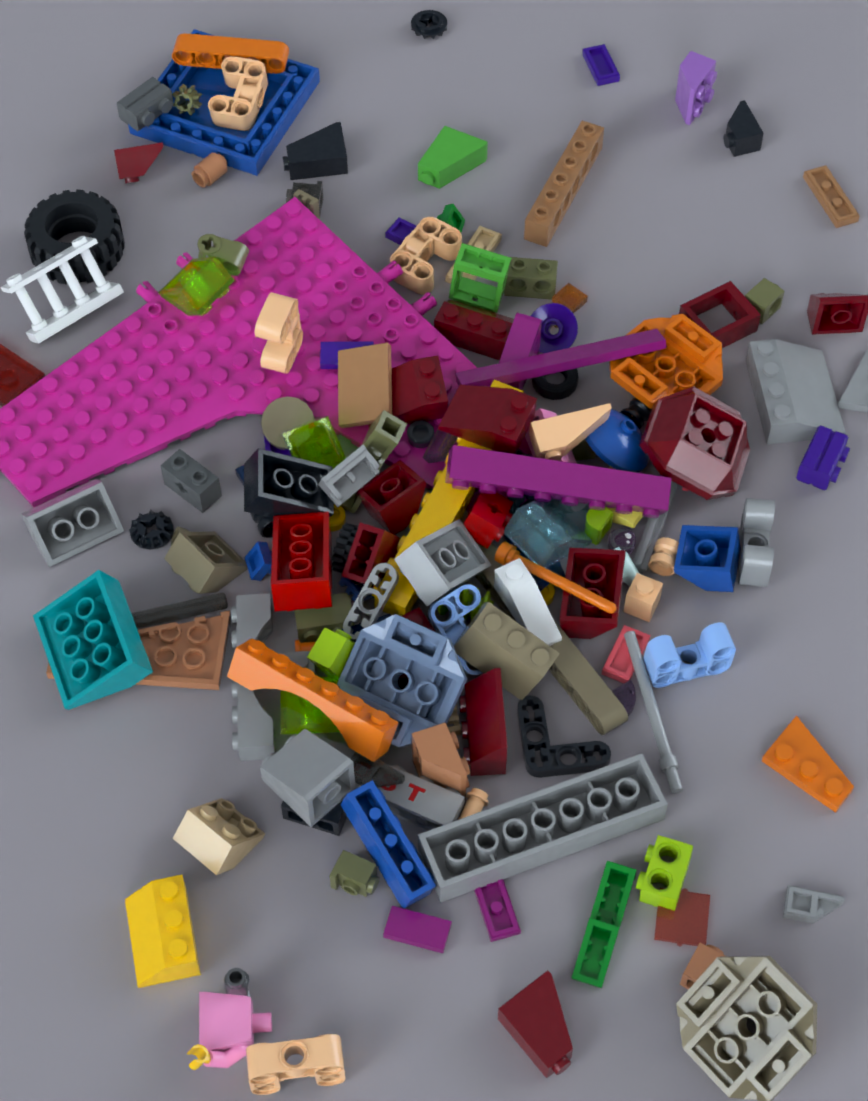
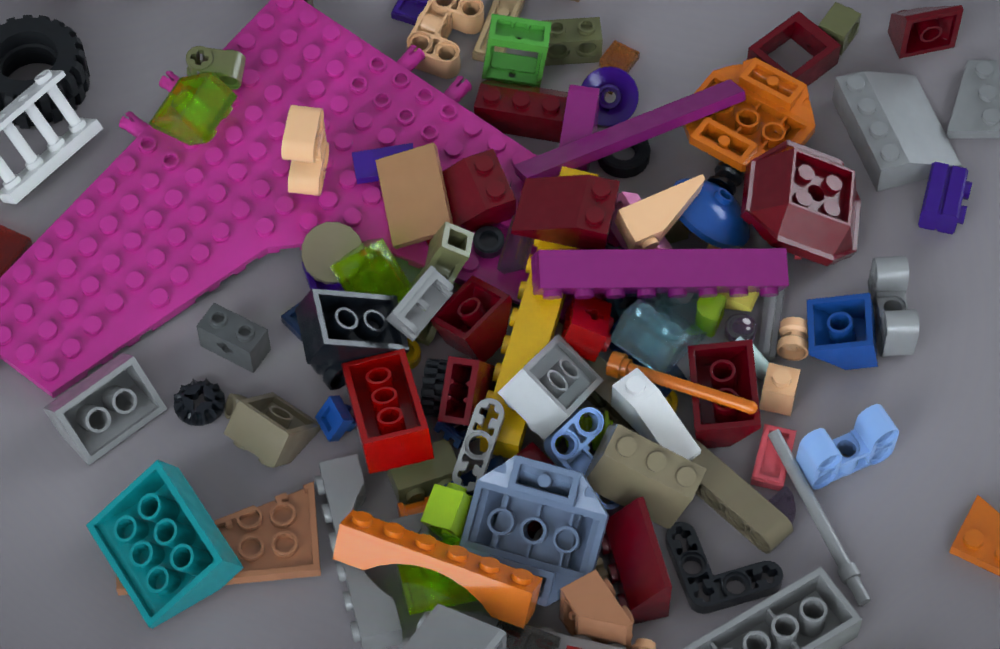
camera: 10 degrees left, 0 degrees up
(180, 610) = (256, 490): clear smoke axle -> none

